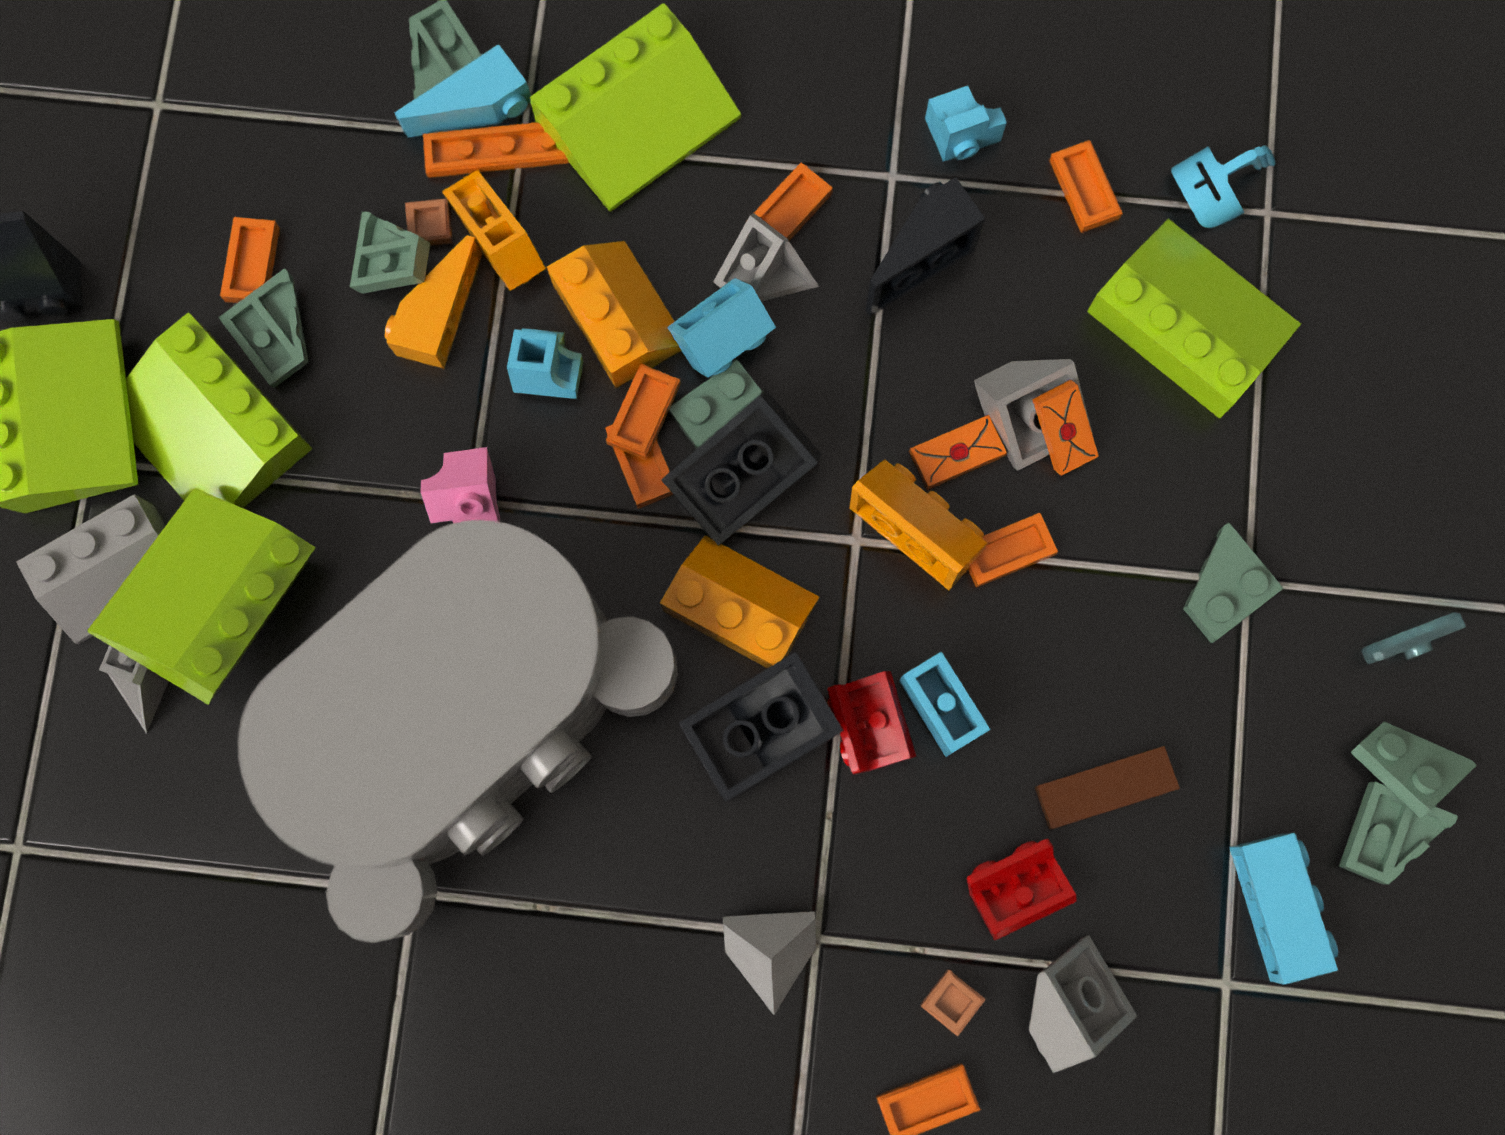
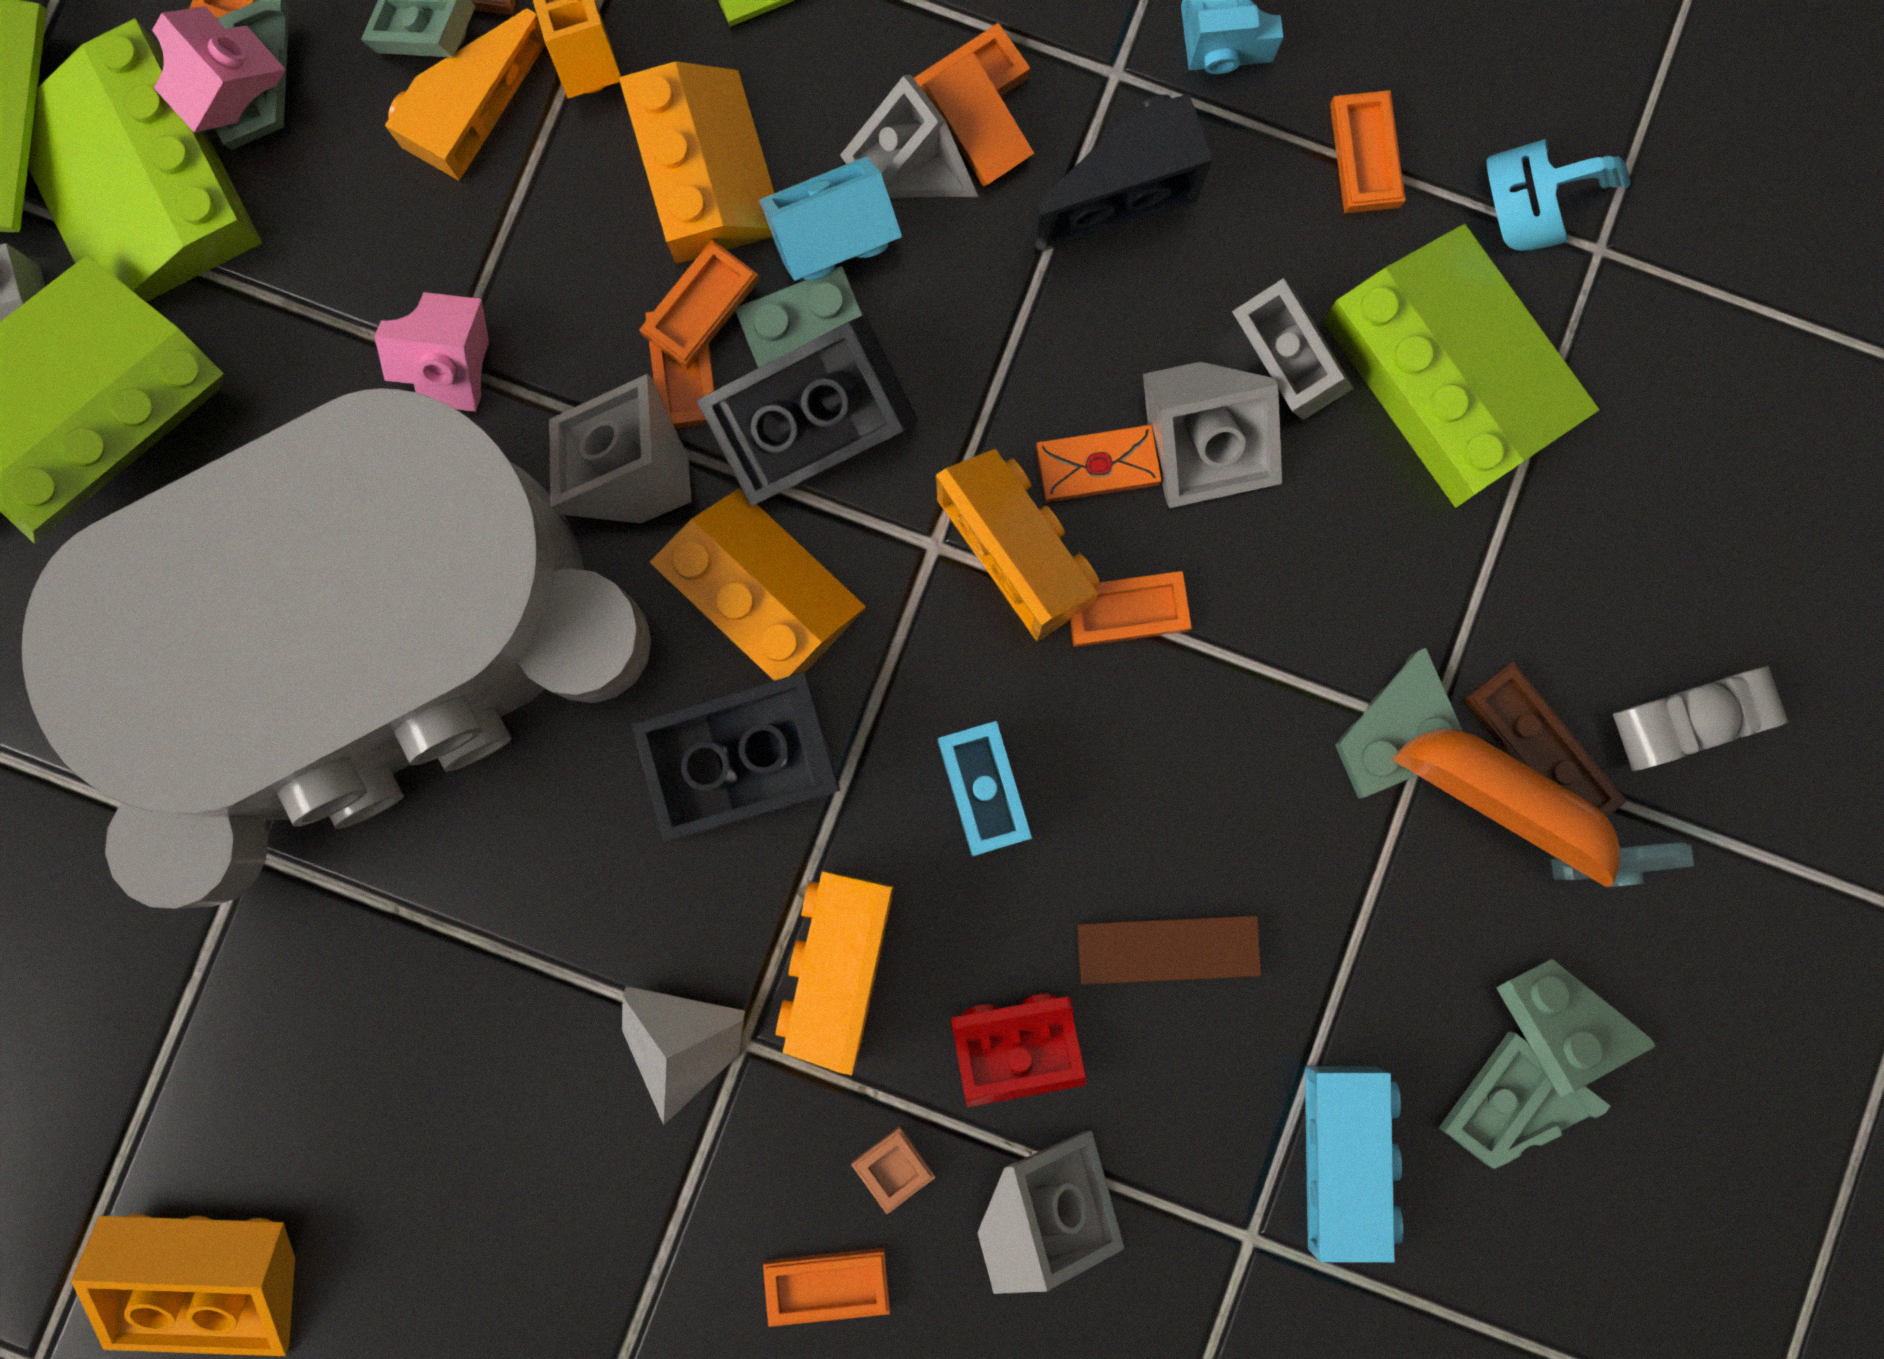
camera: 10 degrees right, 5 degrees up
(253, 333) = (211, 69): none -> bright pink brick
(542, 365) = (584, 207): medium azure brick -> none
(614, 534) = (618, 457): none -> light grey slope
(807, 232) = (978, 119): none -> orange tile
(871, 722) = (884, 787): red bracket -> none
(873, 863) = (835, 970): none -> light orange slope
(1065, 427) = (1245, 467): orange tile -> none
(1075, 336) = (1293, 349): none -> light grey brick
(1327, 612) = (1517, 799): none -> orange brick
(1334, 574) = (1538, 738): none -> reddish brown tile
(1438, 521) = (1700, 718): none -> light grey piece

